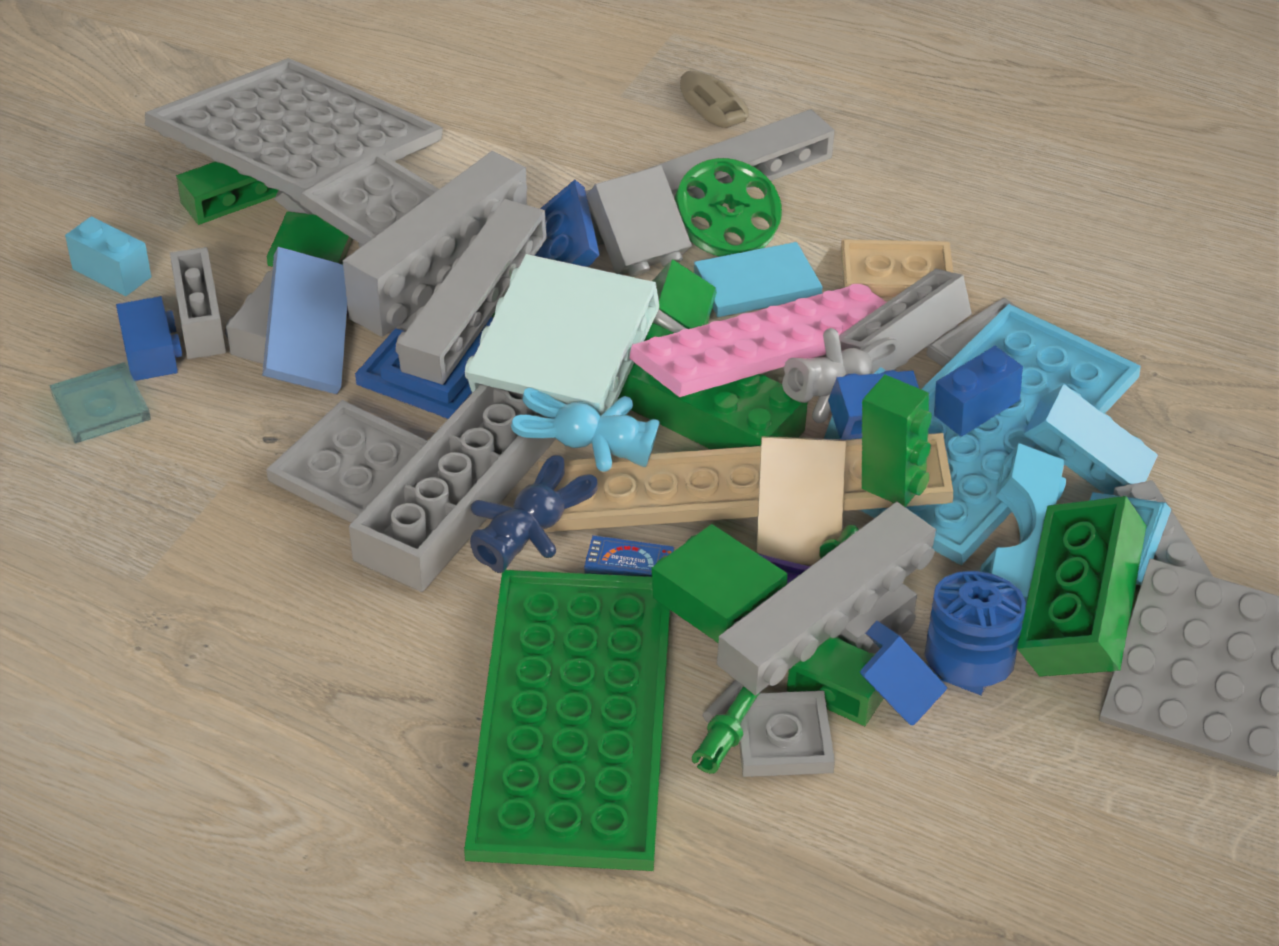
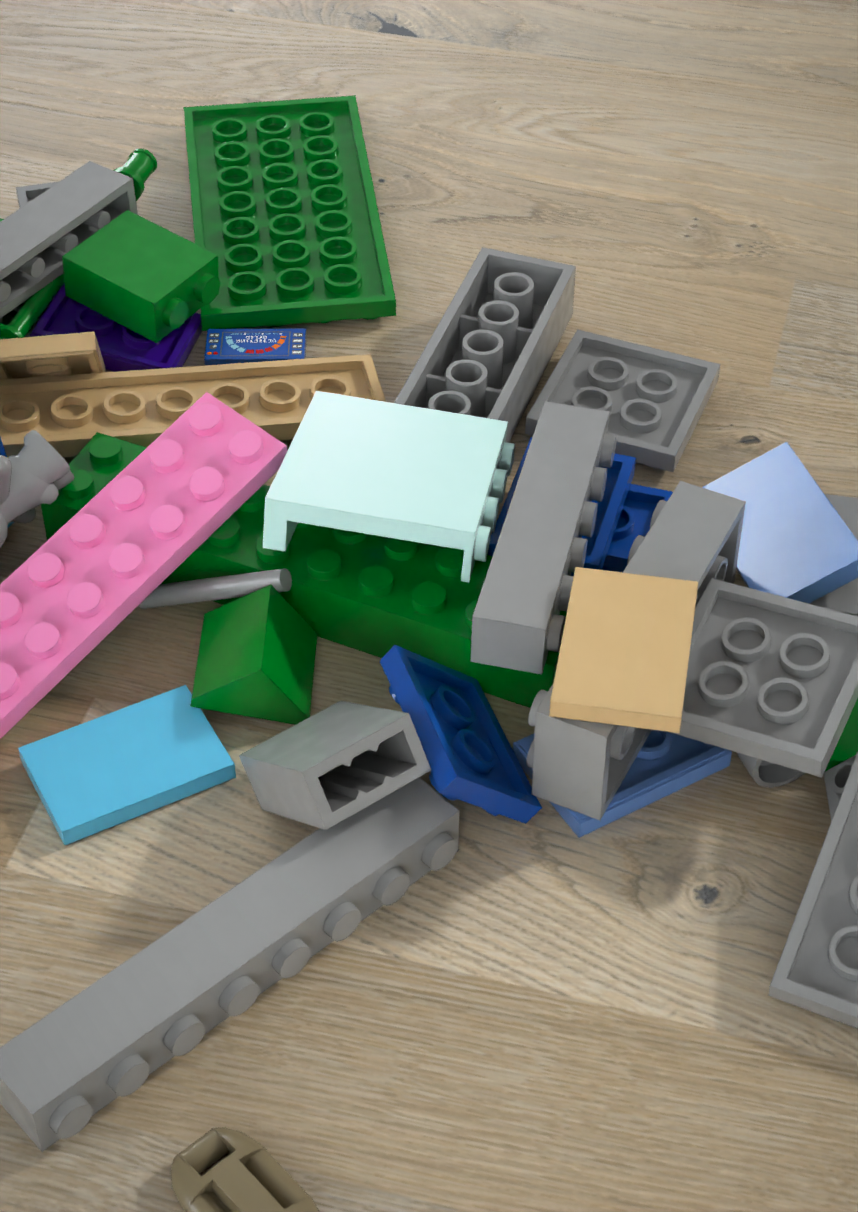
camera: 170 degrees right, 0 degrees up
(463, 179) = (625, 650): none -> tan tile
(533, 512) = (373, 319): dark blue animal -> none
(580, 425) = (286, 392): medium azure animal -> none
(737, 198) = (185, 851): green wedge -> none

